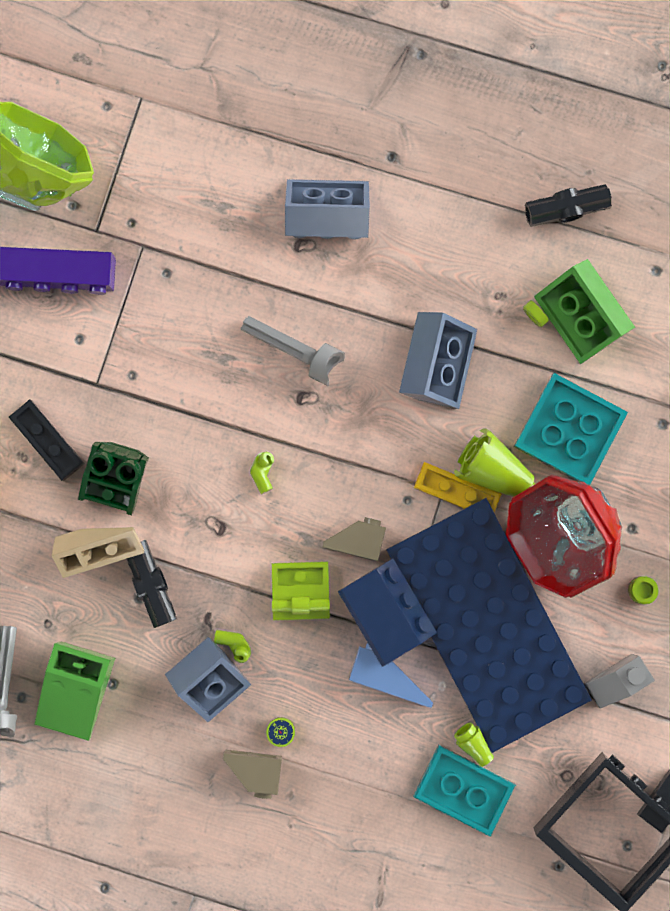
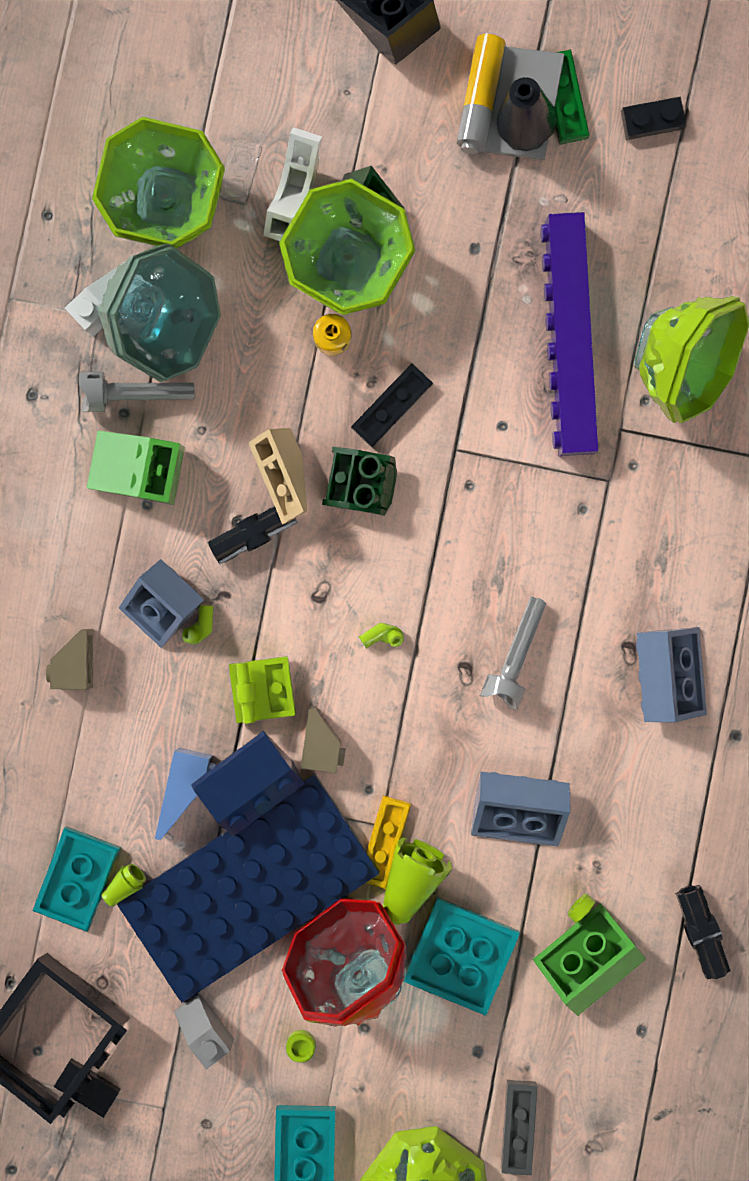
camera: 90 degrees right, 5 degrees up
(280, 732) = (116, 684): tile -> none

